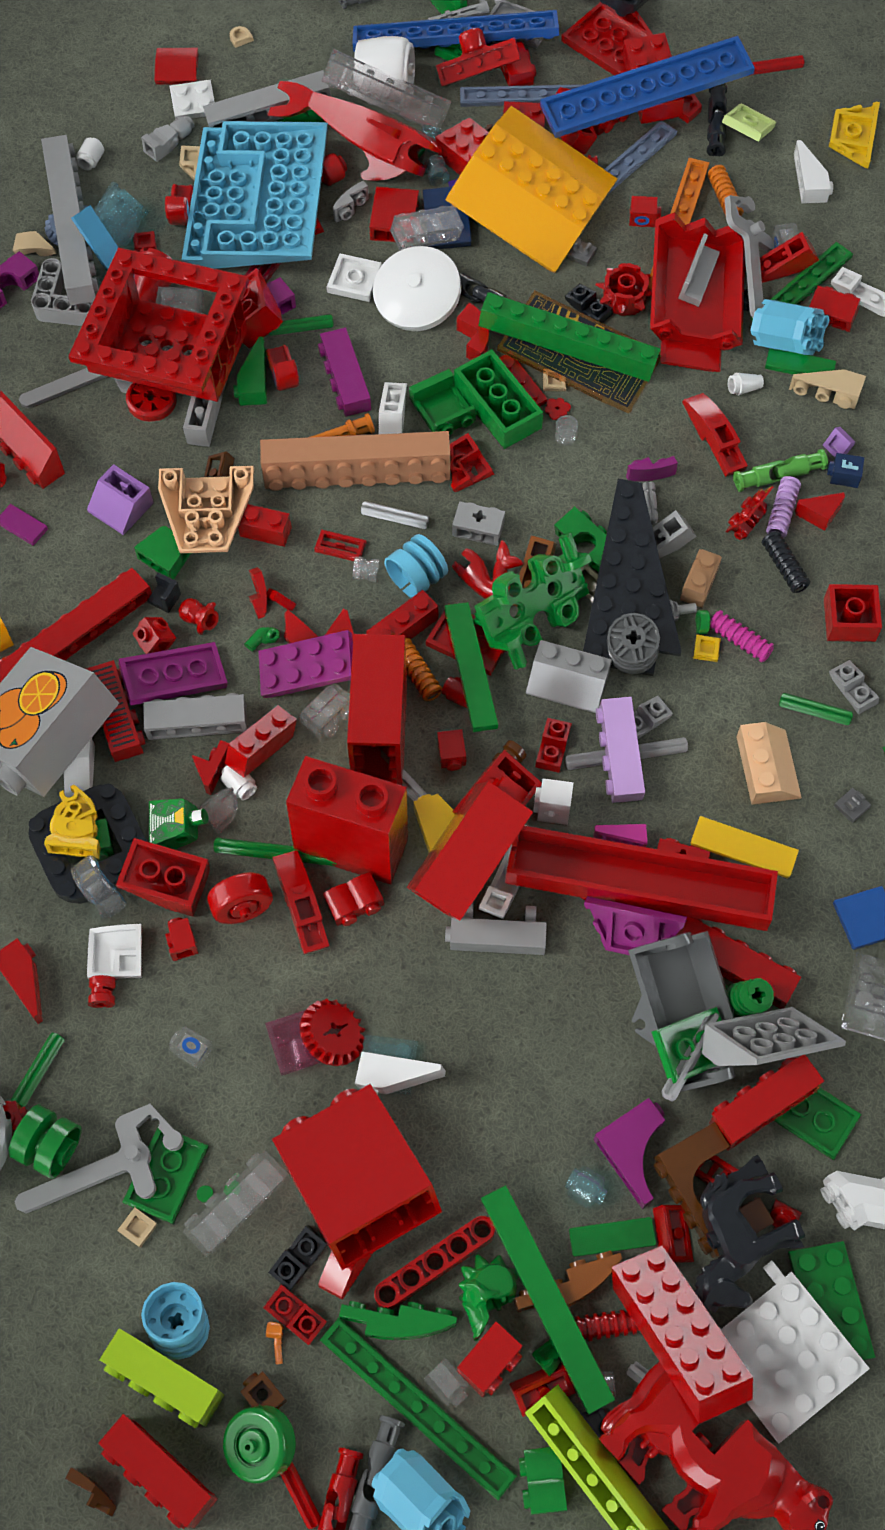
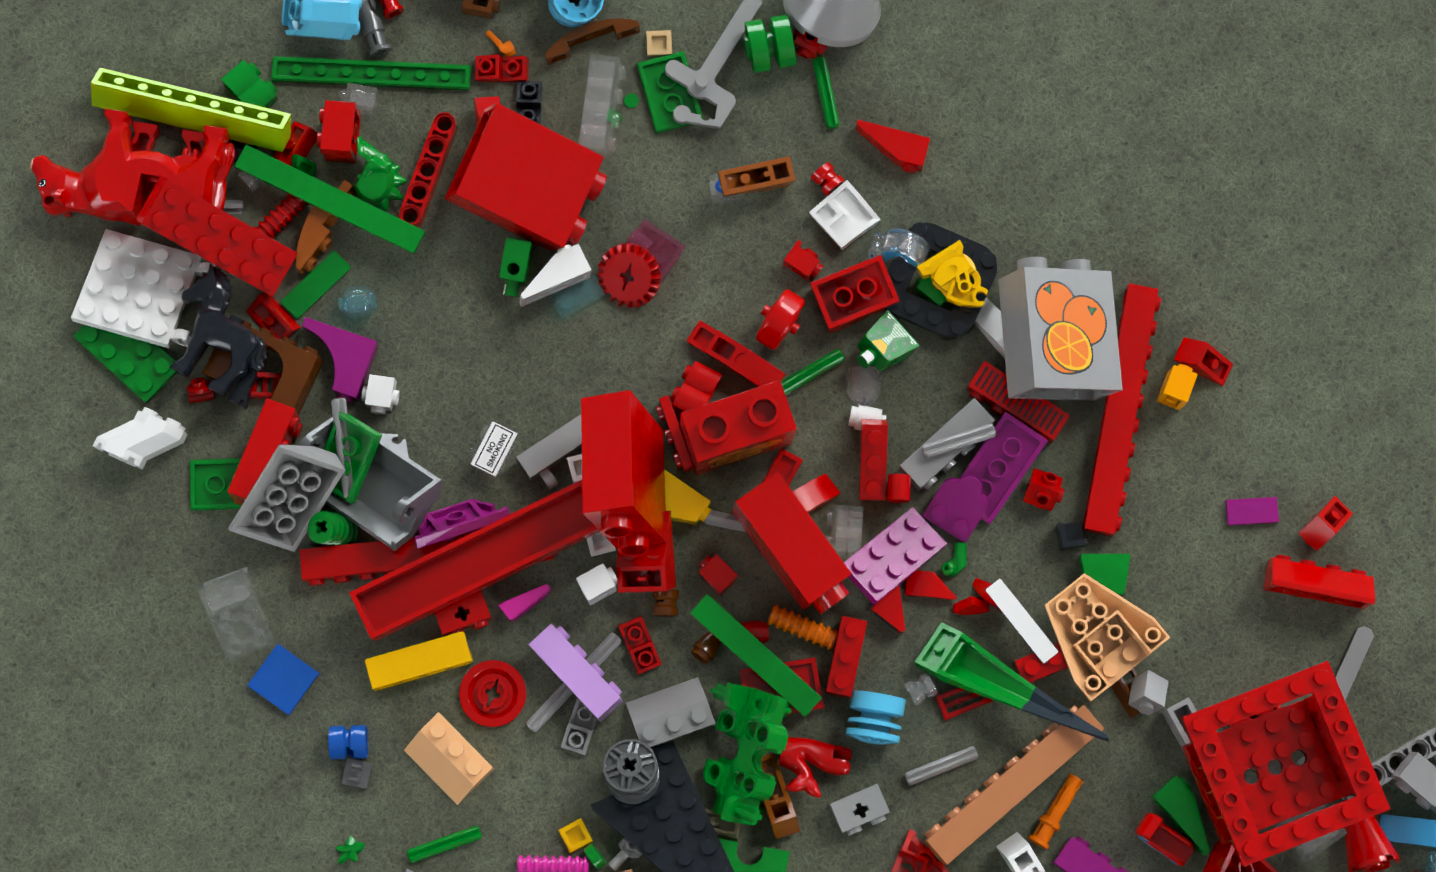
camera: 140 degrees right, 15 degrees up
(119, 499) = (1186, 592): medium lavender slope -> none
(155, 1028) = (757, 177): none -> dark orange slope
(184, 703) = (958, 441): none -> light grey axle
(196, 613) = (1029, 537): red animal -> none
(208, 454) = (1148, 692): none -> light grey brick
(211, 770) = (897, 407): red slope -> none
(226, 1286) = (620, 26): none -> reddish brown slope
(227, 668) = (958, 506): none -> magenta plate
(253, 551) = (1021, 620): none -> white sticker
(260, 702) = (898, 488): none -> red piece
(318, 556) = (967, 665): none -> green plate
(329, 750) = (817, 493): none -> slope
(399, 878) = (674, 434): none -> red plate
(410, 1324) = (414, 119): green slope -> none
(417, 1116) = (520, 253): none -> green torso
(504, 705) = (706, 647): none -> reddish brown cone
(559, 972) = (493, 450): none -> brick
(623, 1090) = (380, 394): none -> white brick
(699, 772) = (484, 677): none -> red gear
(845, 828) = (348, 742): none -> blue wheel

